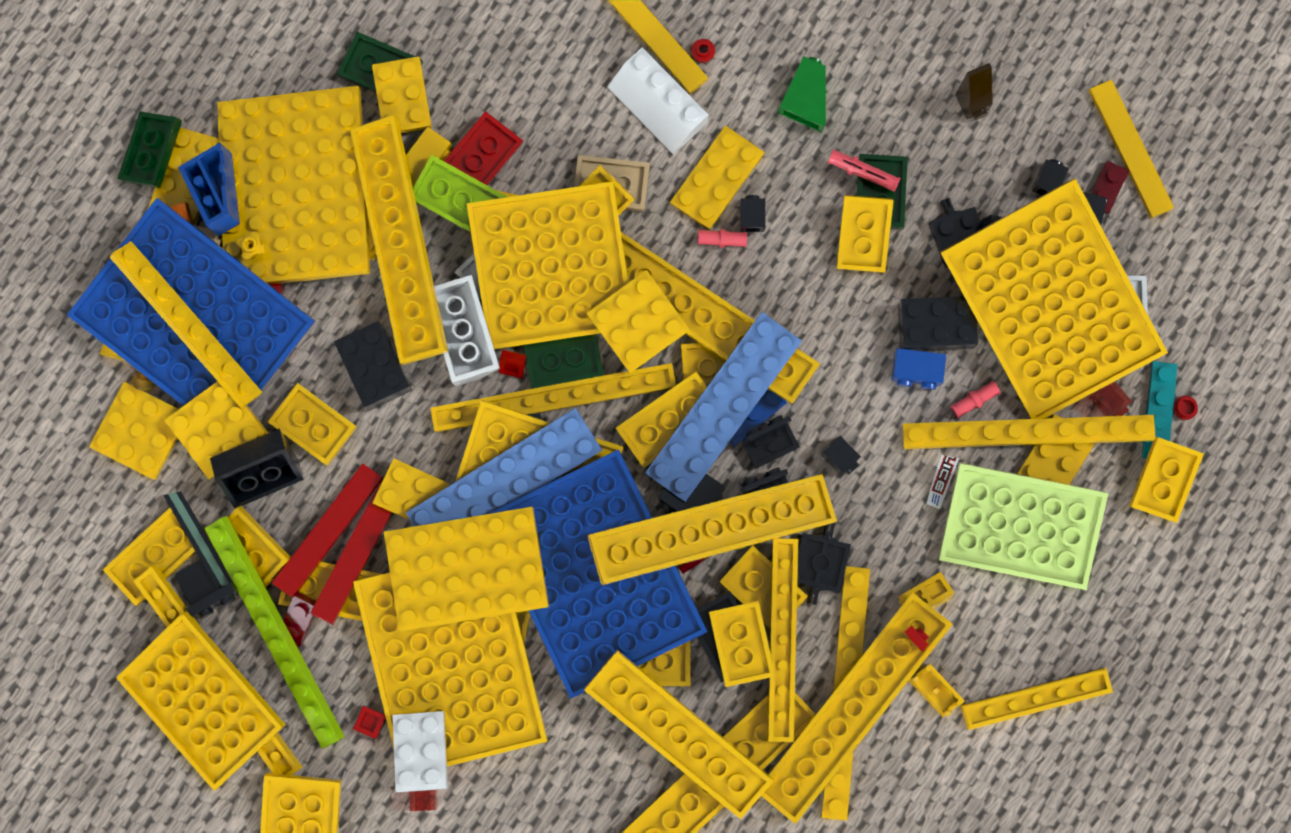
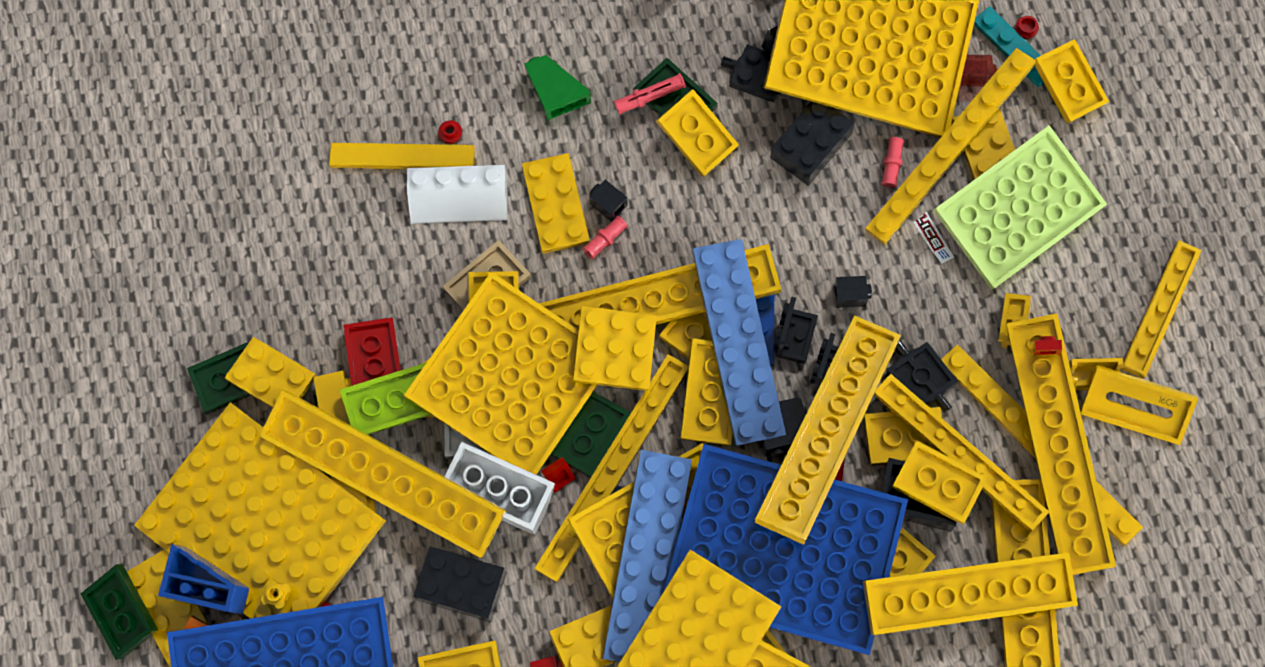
camera: 45 degrees left, 10 degrees down
(918, 368) = (833, 181): blue brick -> none
(926, 746) = (1164, 428): none -> yellow piece

